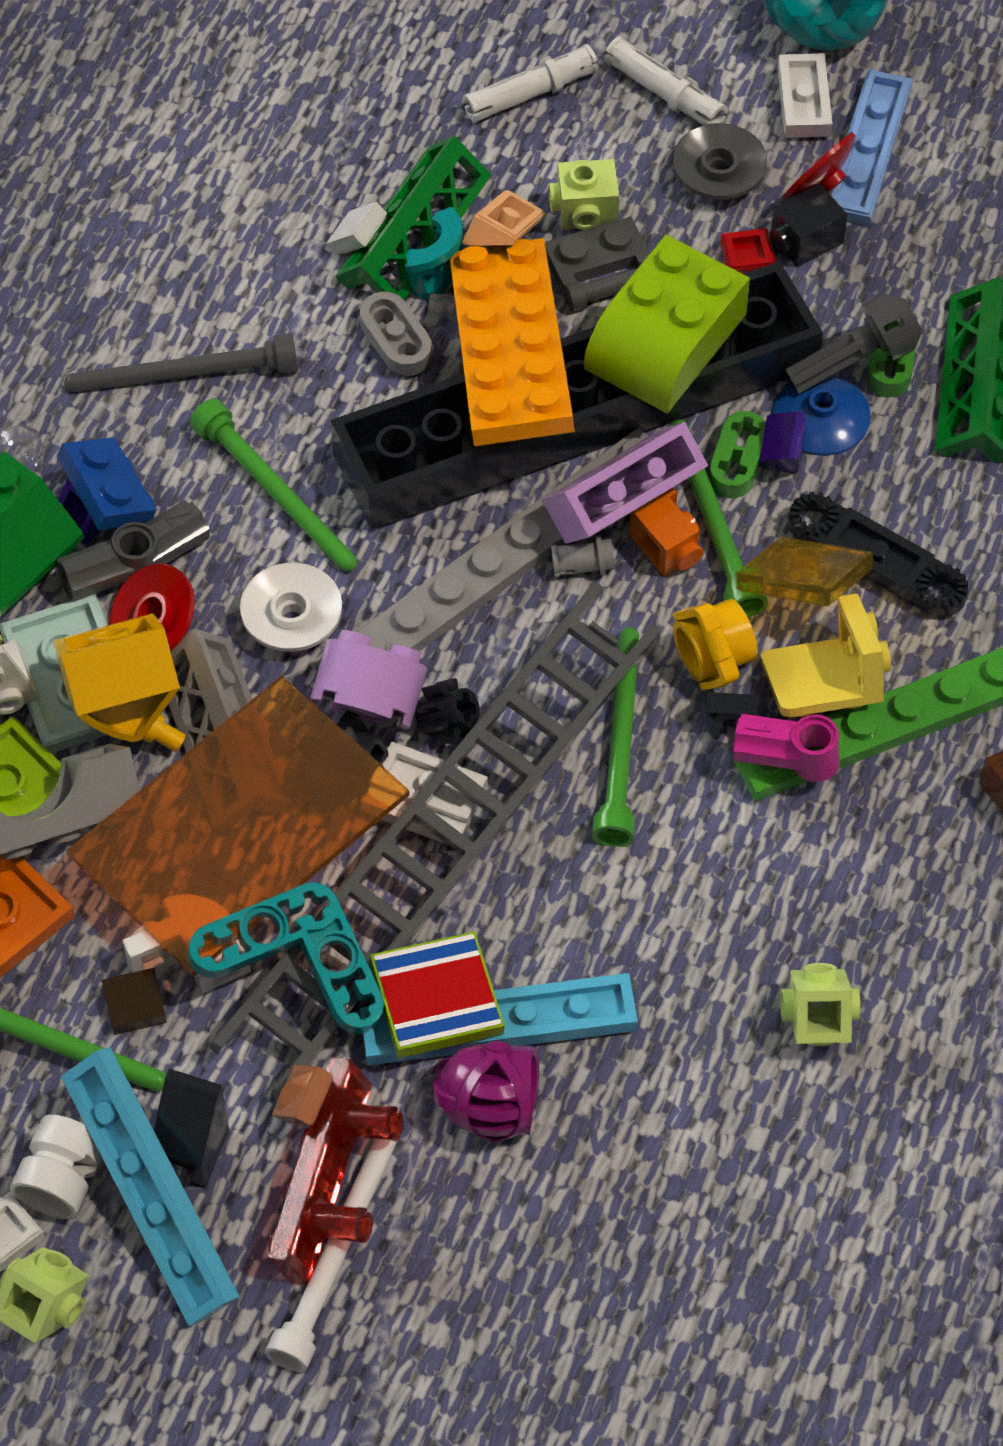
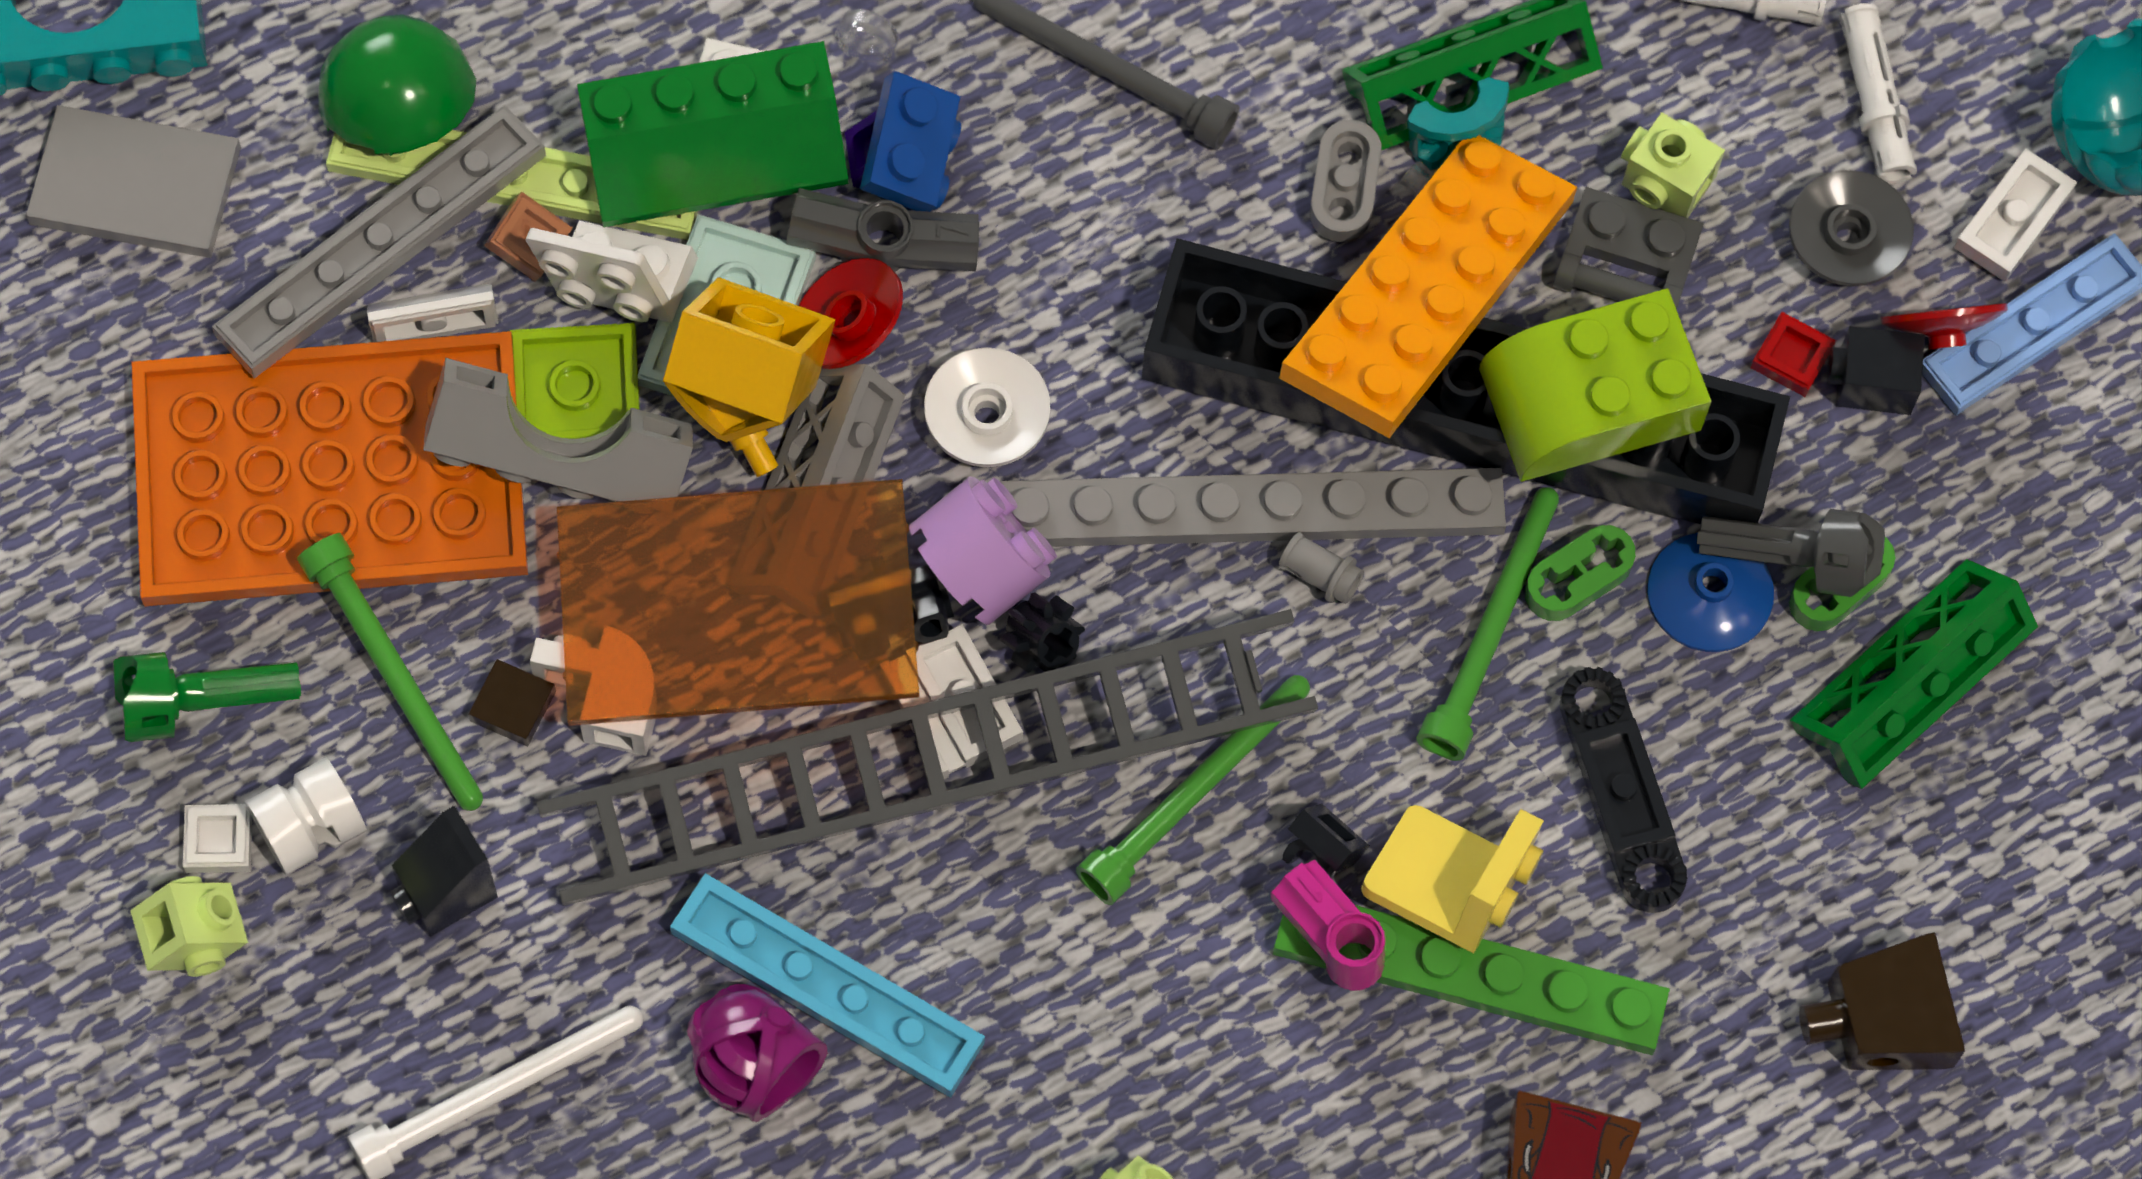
camera: 35 degrees right, 10 degrees up
(149, 1186) = (362, 901): medium azure plate -> none
(214, 423) = (1082, 148): bright green piece -> none
(303, 1095) = (573, 920): nougat tile -> none
(311, 937) = (703, 774): teal beam -> none
(311, 1193) = (560, 987): clear red plate -> none
(357, 228) = (1405, 32): white tile -> none
(437, 994) = (780, 917): tile -> none
(503, 221) = (1554, 137): light nougat slope -> none
(624, 483) = (1414, 525): lavender brick -> none
(666, 534) = (1424, 605): orange brick -> none
(714, 642) = (1365, 761): yellow piece -> none
(783, 441) = (1632, 596): dark purple slope -> none
(804, 571) = (1519, 754): clear yellow plate -> none

